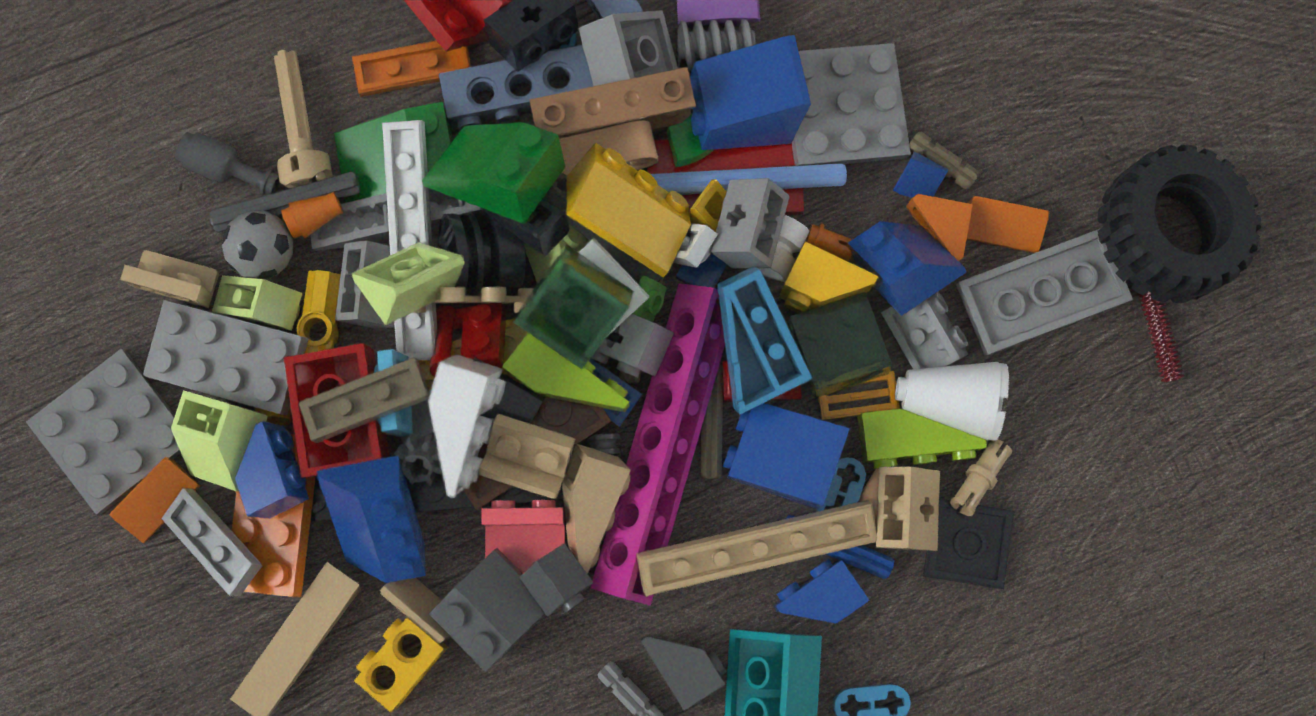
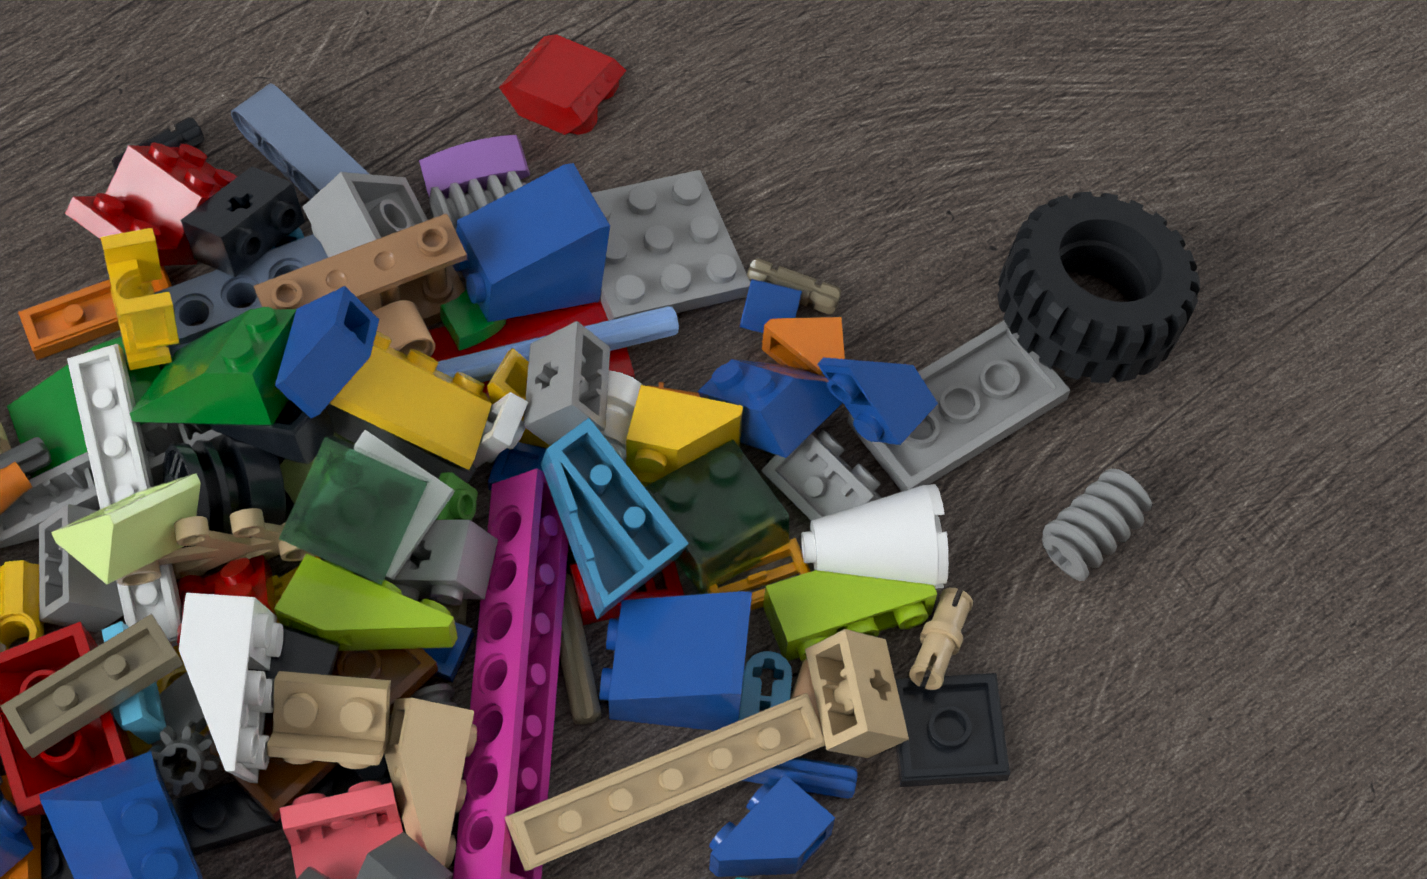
camera: 15 degrees left, 20 degrees down
(443, 114) = (143, 317): none -> yellow piece
(573, 176) = (325, 349): none -> blue slope
(986, 284) = (880, 396): none -> blue slope
(1007, 224) = (892, 336): orange slope -> none
(1120, 411) = (1095, 523): none -> light grey piece
(1161, 338) = (1117, 429): dark red axle -> none

